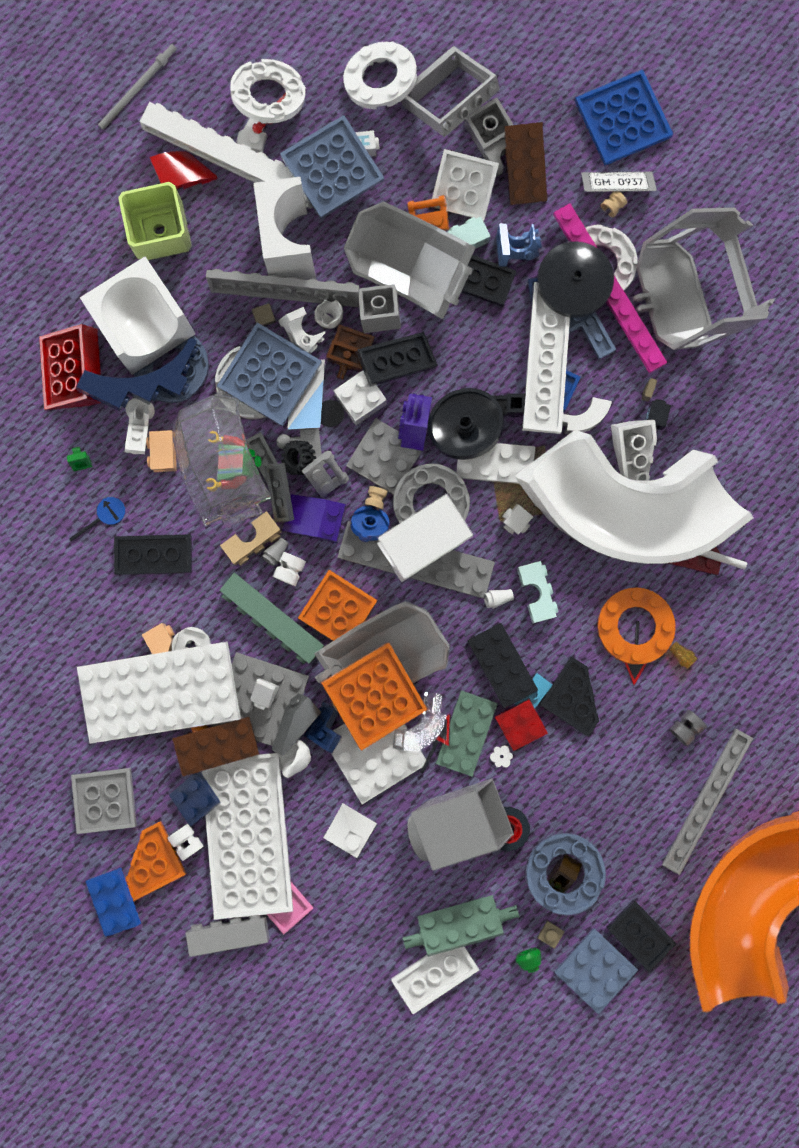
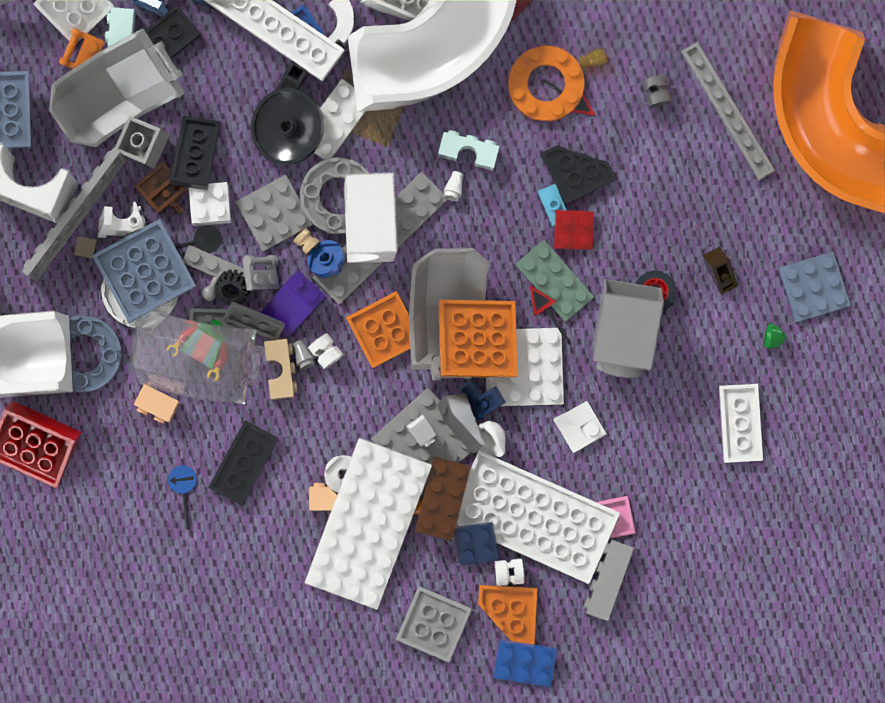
camera: 65 degrees left, 0 degrees up
(79, 460) = (121, 481): green tile -> none
(115, 391) = (98, 360): dark blue arch -> none
(139, 416) = (111, 404): white piece -> none
(272, 618) = (360, 390): sand green brick -> none
(308, 408) = (194, 254): sticker -> none
(333, 308) = (119, 181): white hair -> none
(414, 421) = (261, 168): dark purple brick -> none
(427, 728) = (531, 311): clear arch -> none
(460, 926) = (712, 378): sand green plate -> none
(495, 756) = (597, 262): white plant -> none
(502, 665) = (514, 216): black plate -> none
(516, 520) = (396, 131): white brick -> none
(550, 934) = (763, 307): dark tan plate -> none
(593, 879) = (722, 237): sand blue plate -> none
(641, 935) = (806, 232): black plate -> none

